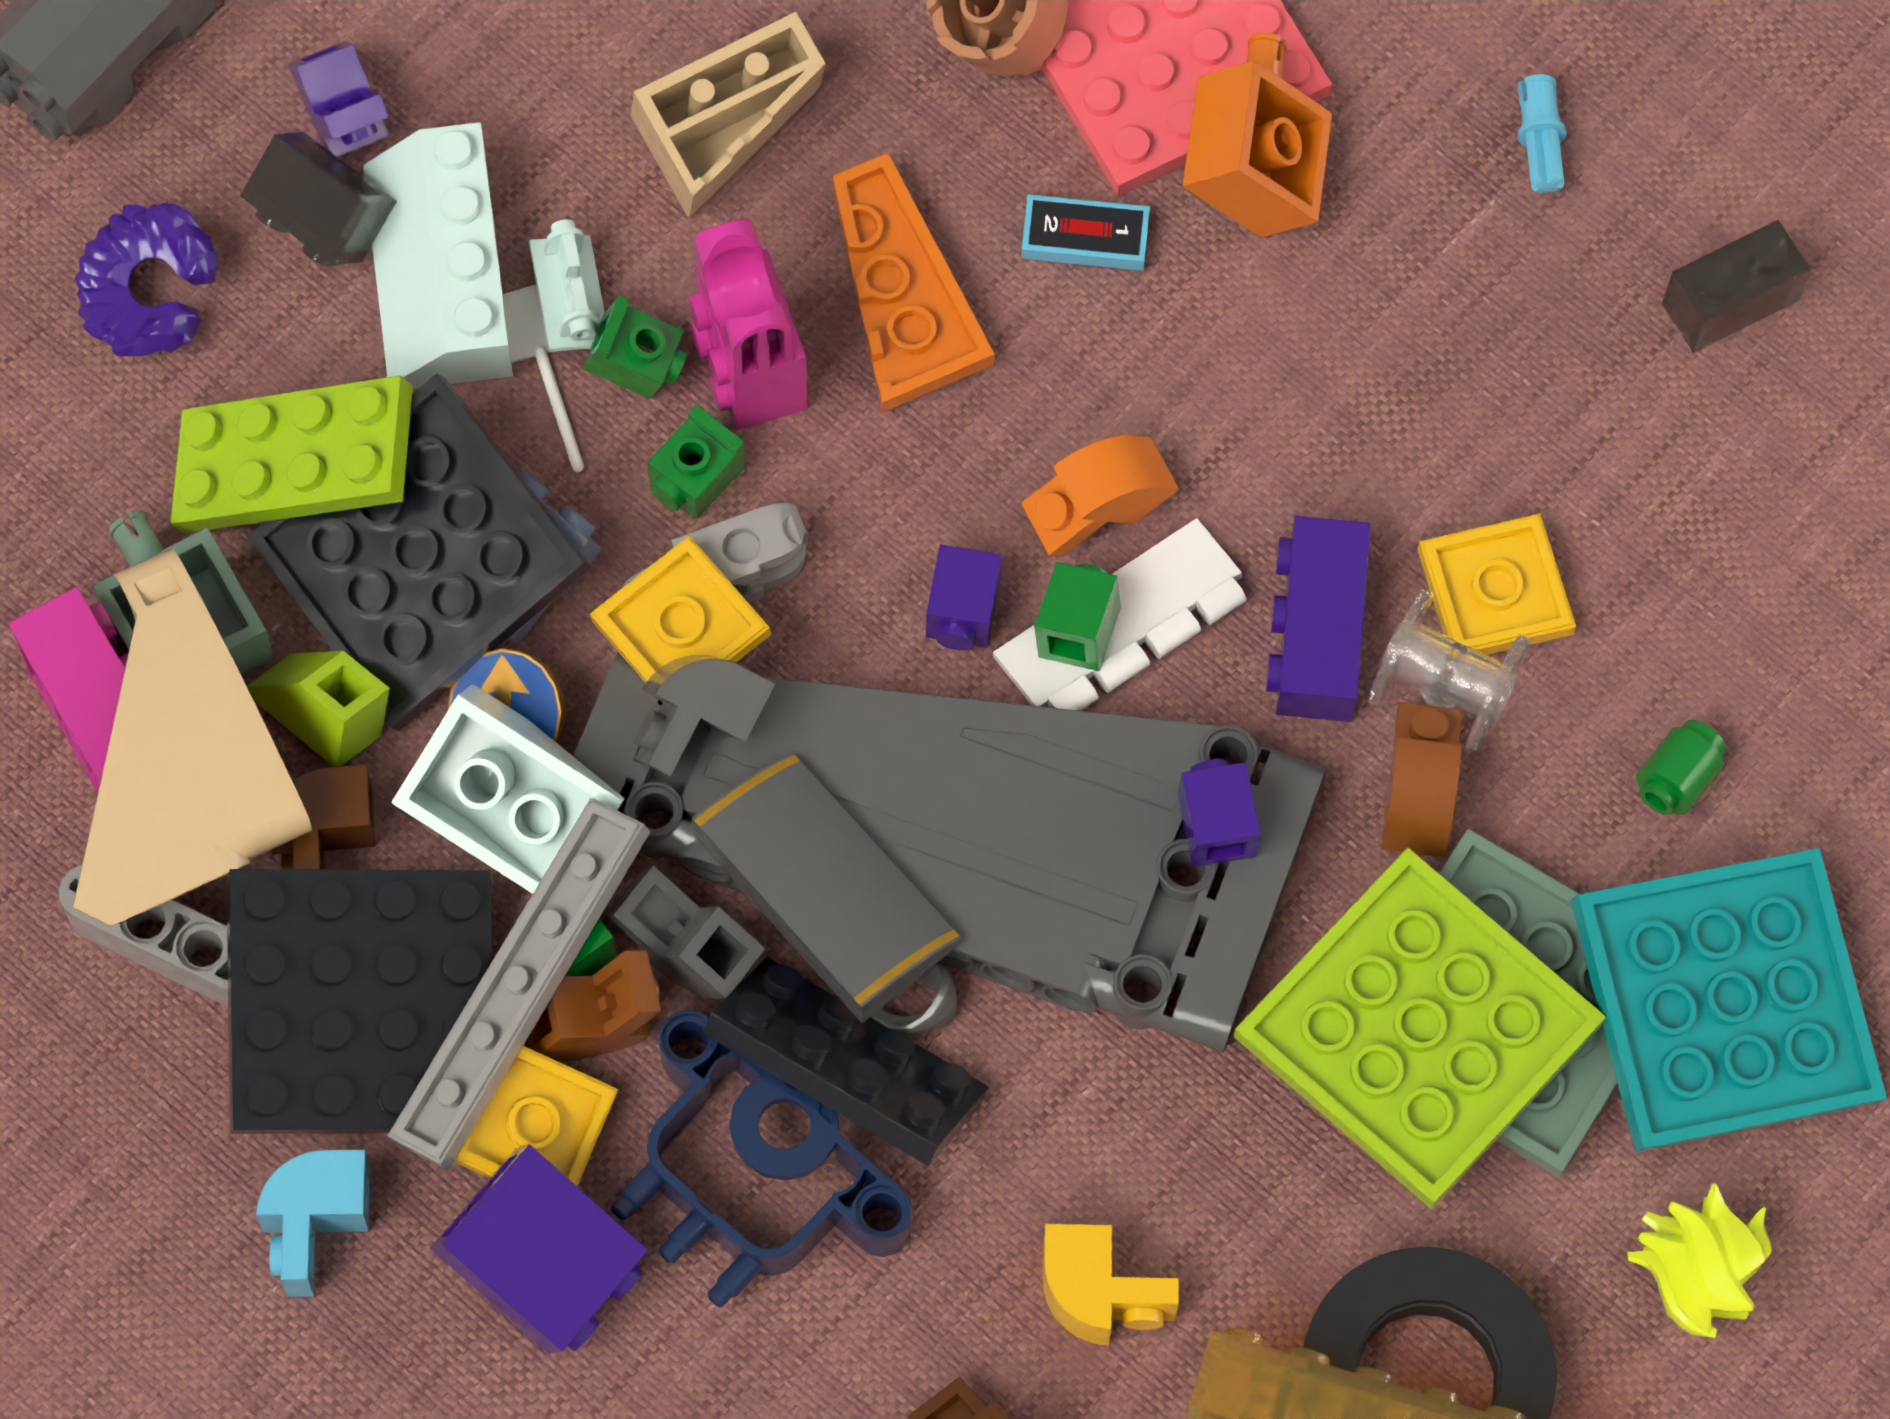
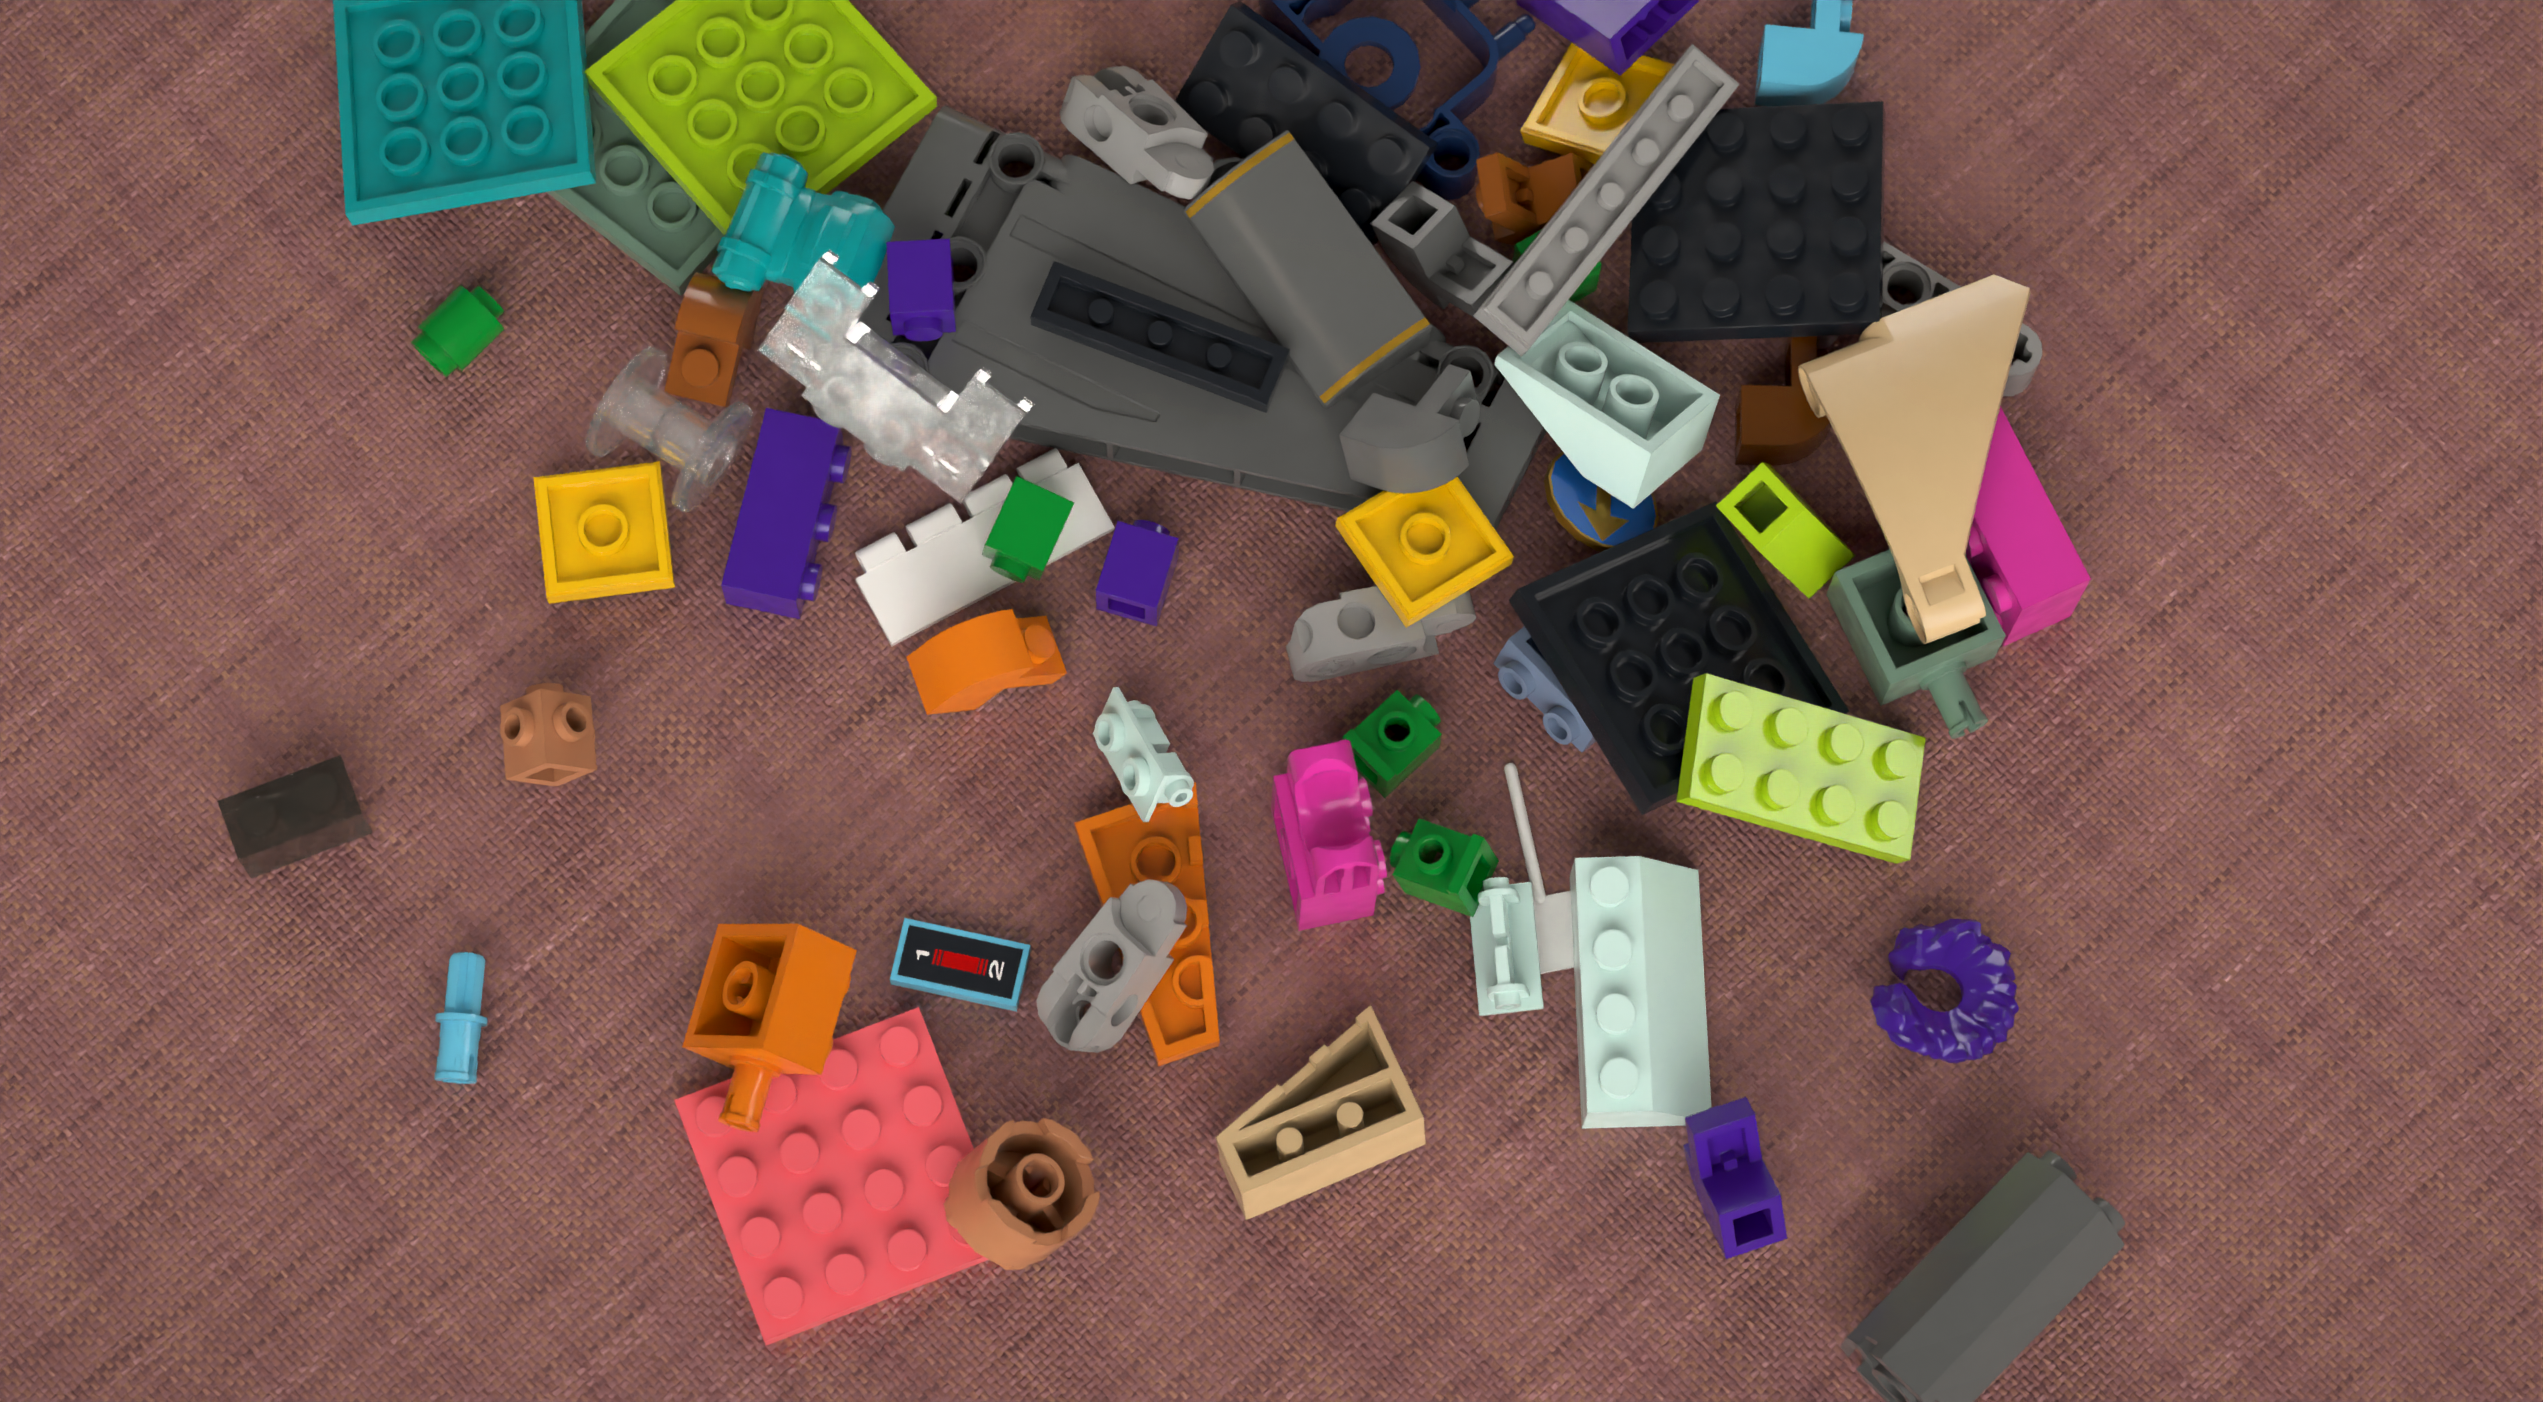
camera: 175 degrees left, 5 degrees up
(317, 200) = (1762, 1056): clear smoke brick -> none
(930, 396) = (1138, 755): none -> light aqua hinge
(939, 212) = (1145, 927): none -> light grey piece
(969, 795) = (1160, 336): none -> black plate
(979, 986) = (1138, 130): none -> light grey piece
(1237, 704) = (881, 393): none -> clear bracket
(1345, 847) = (788, 227): none -> teal piece
(1511, 377) = (548, 736): none -> nougat brick

